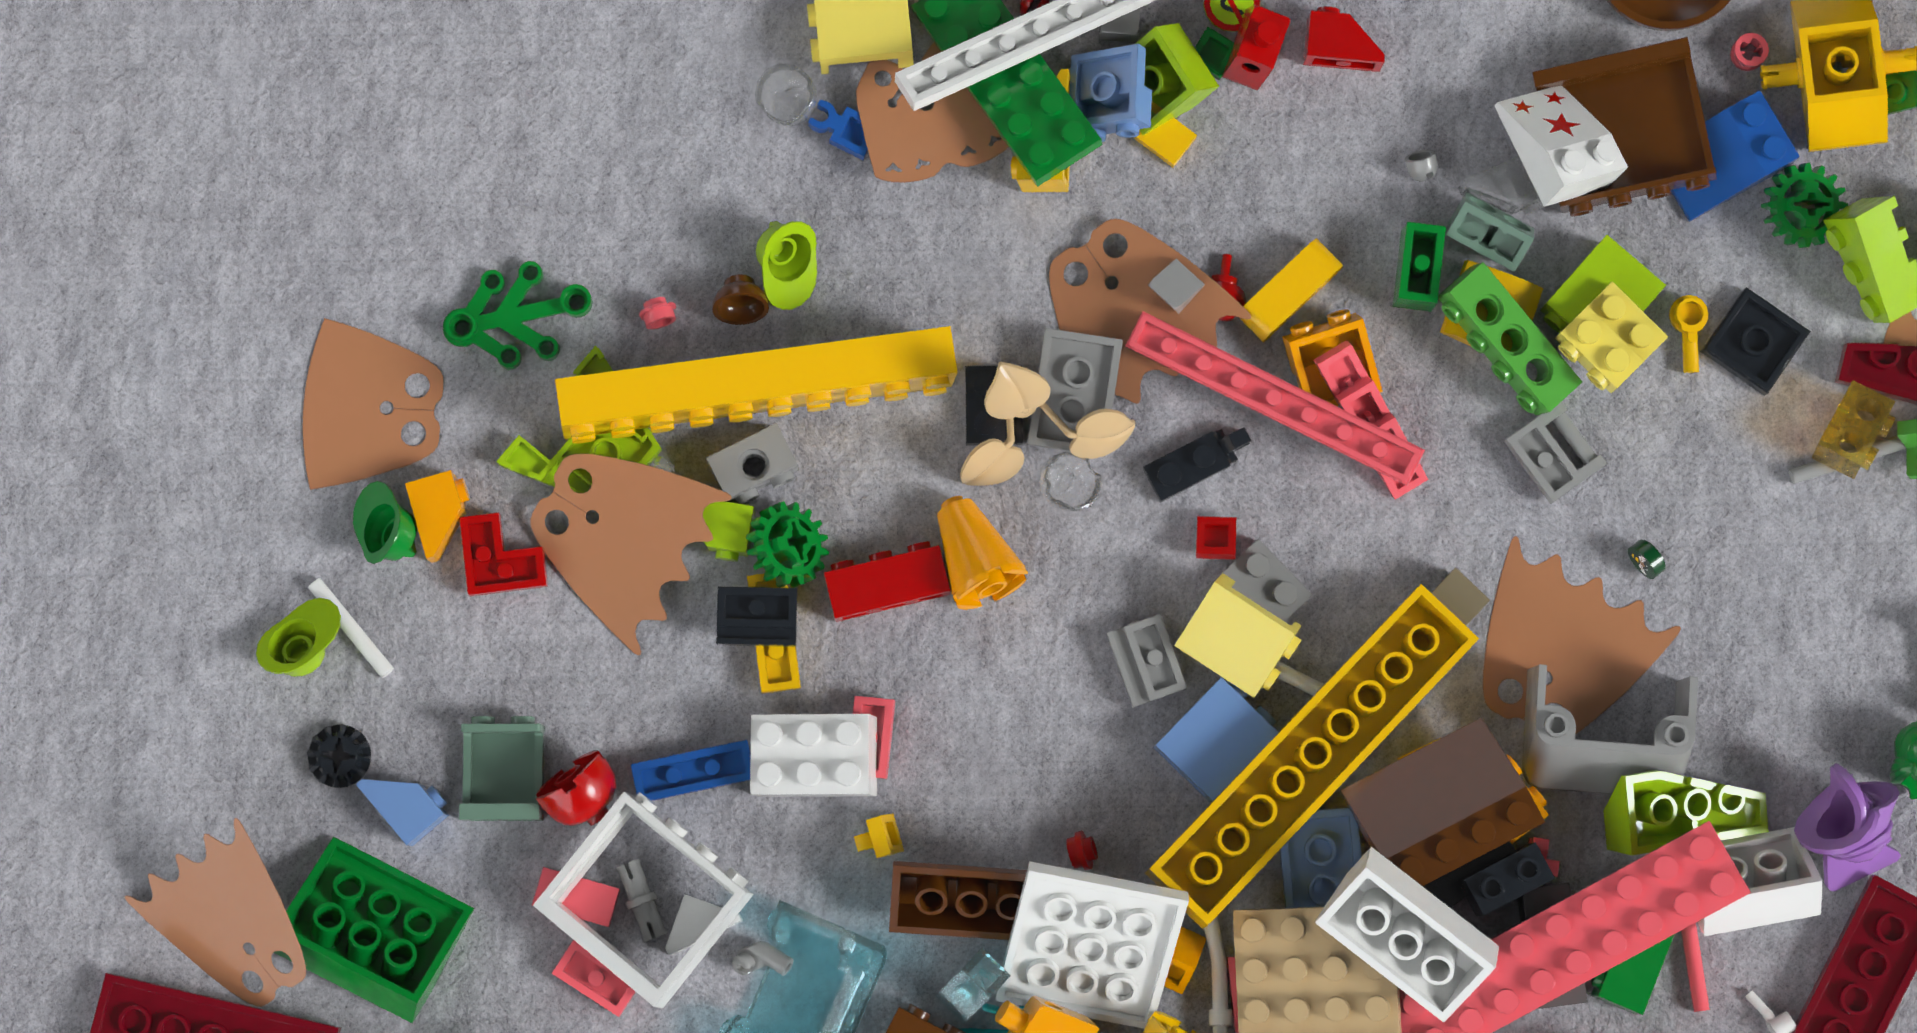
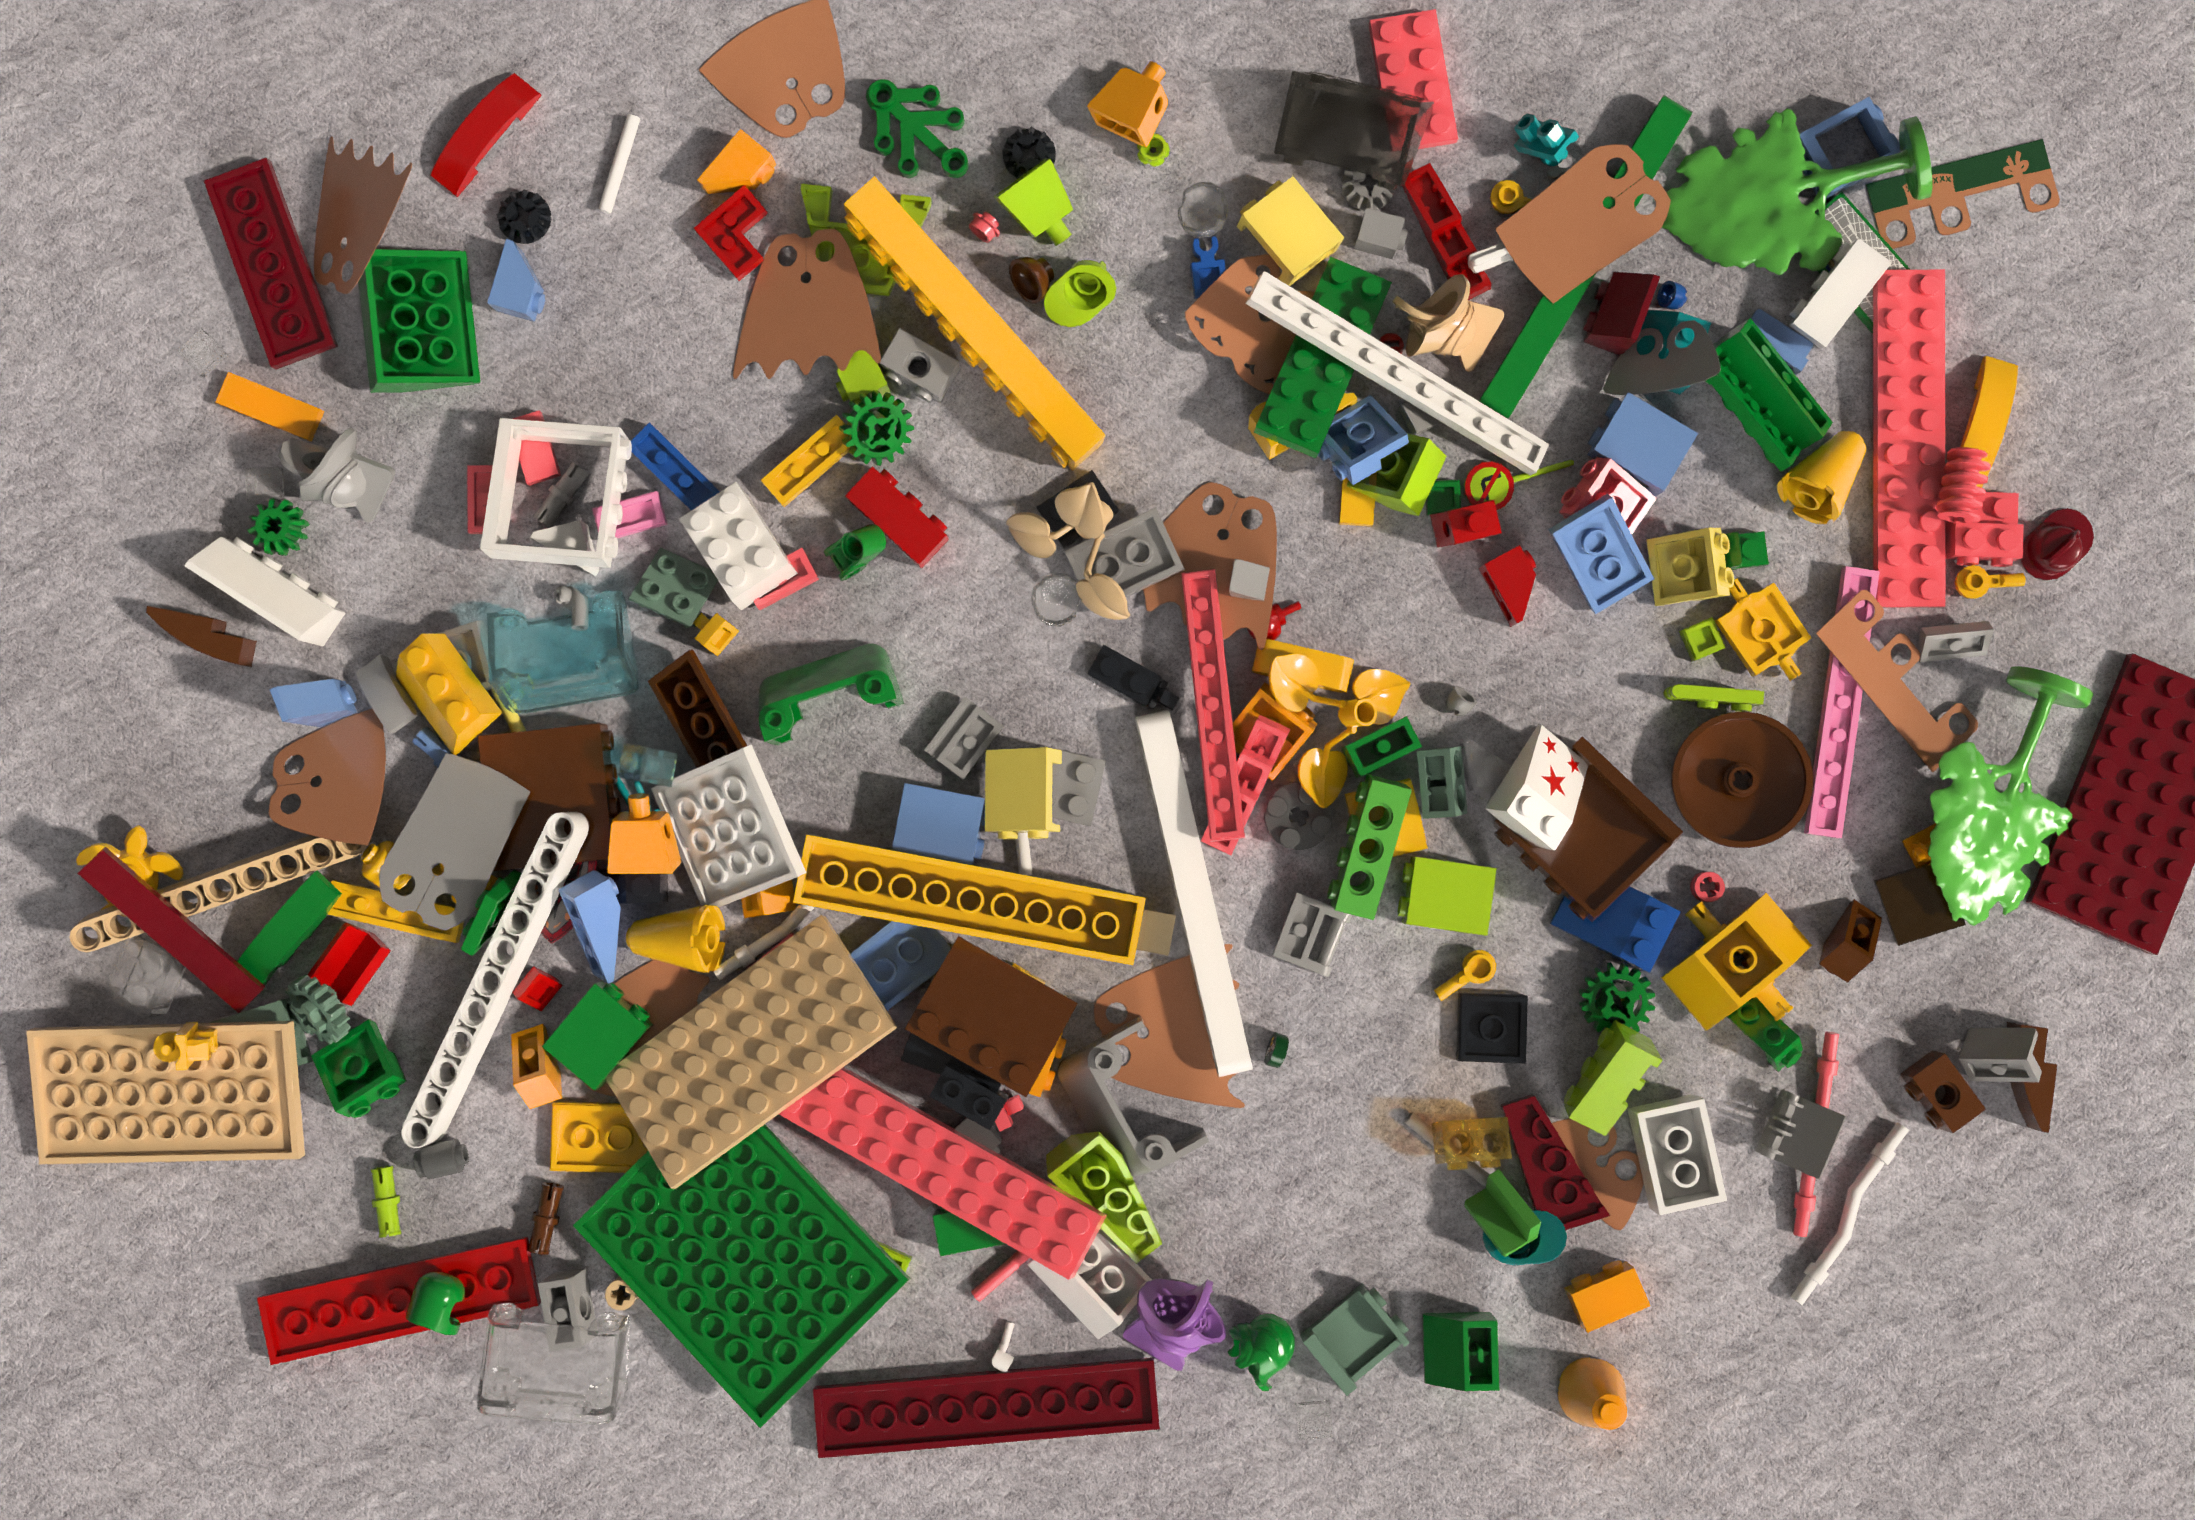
camera: 65 degrees right, 5 degrees up
(228, 741) = (481, 131): none -> red slope
(300, 639) = (582, 132): lime piece -> none
(382, 525) = (702, 137): green piece -> none
(502, 769) = (587, 337): sand green panel -> none
(580, 791) = (603, 398): red cylinder -> none
(632, 231) = (1026, 138): none -> black gear
(637, 94) = (1131, 104): none -> light orange torso
(671, 245) = (1038, 202): none -> lime torso
(688, 95) = (1157, 158): none -> lime plate
(715, 830) = (639, 514): none -> bright pink tile
(757, 616) = (809, 439): black plate -> none
(810, 847) = (674, 587): none -> sand green hinge
(893, 642) = (856, 550): none -> green piece
(976, 555) = (958, 566): light orange cone -> none
(997, 763) = (862, 666): none -> green windscreen
(1081, 850) = (798, 780): red plate -> none
(1216, 537) = (1086, 730): red plate -> none
(1367, 238) = (1377, 701): none -> yellow plant
(1408, 935) = (876, 1050): white slope -> none
(1442, 538) = (1193, 893): none -> white beam
(1445, 408) = (1291, 834): none -> dark grey plate
(1610, 338) = (1419, 920): light yellow plate -> none

